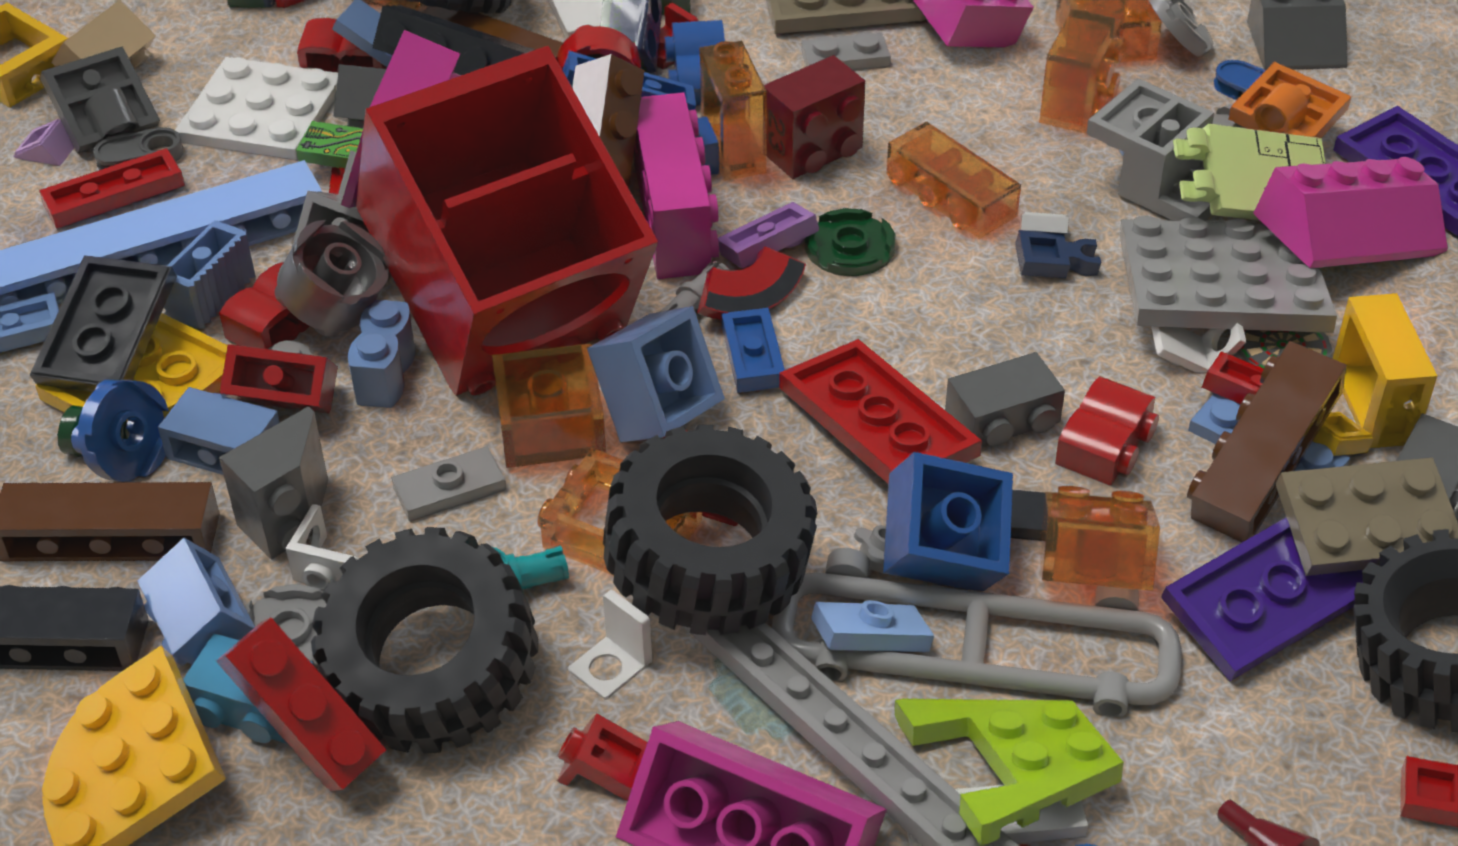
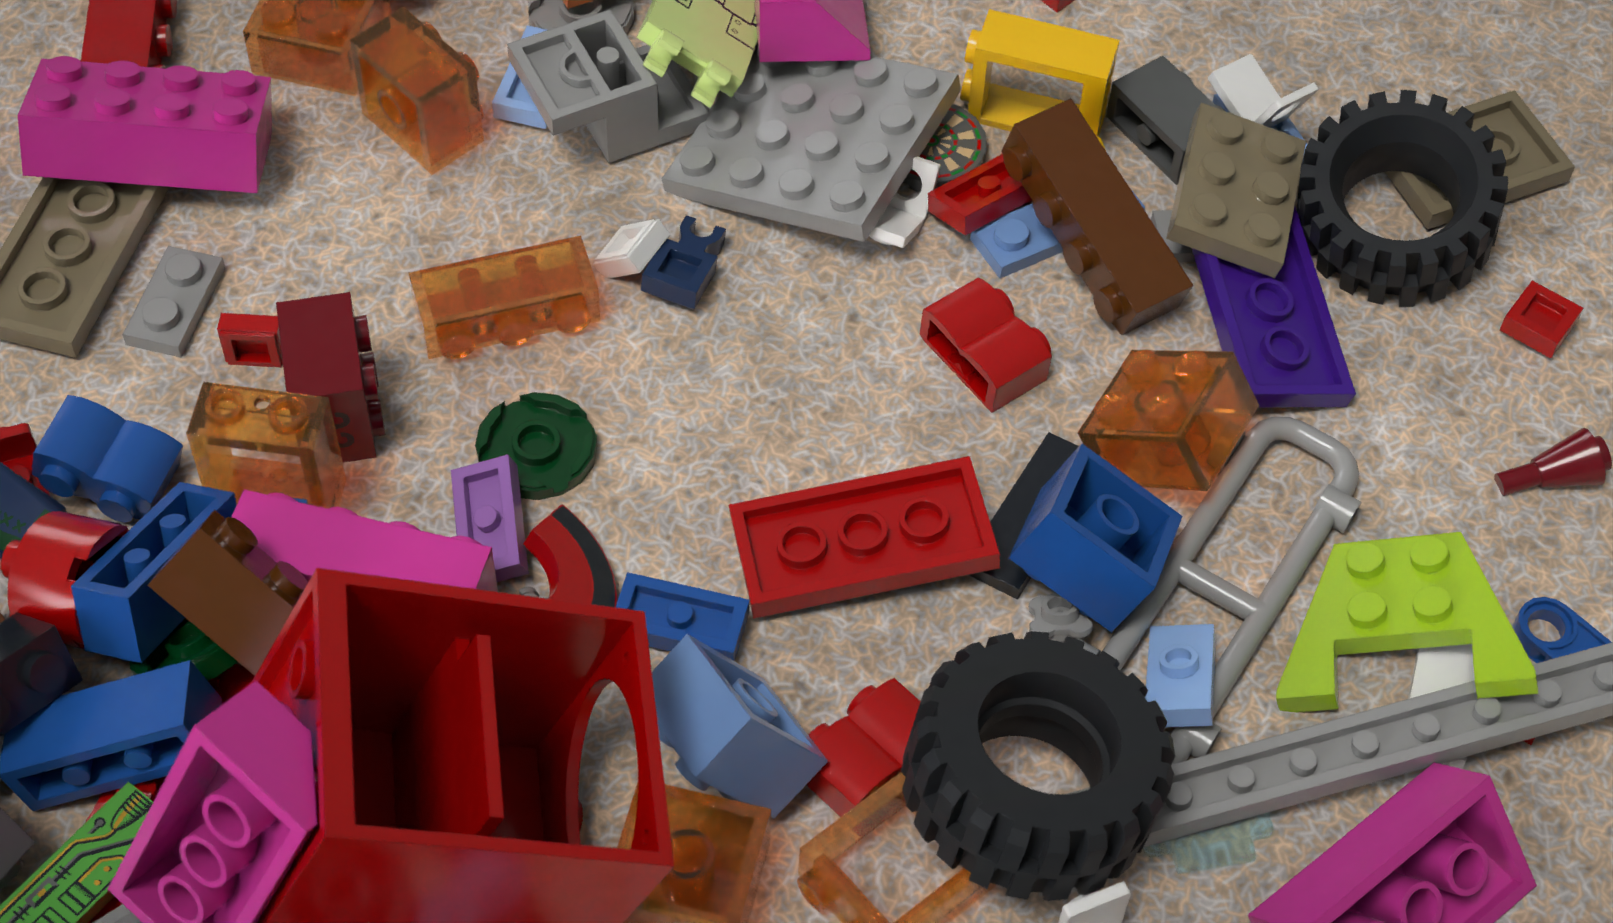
camera: 70 degrees left, 10 degrees up
(1006, 399) = (902, 409): dark grey brick -> none

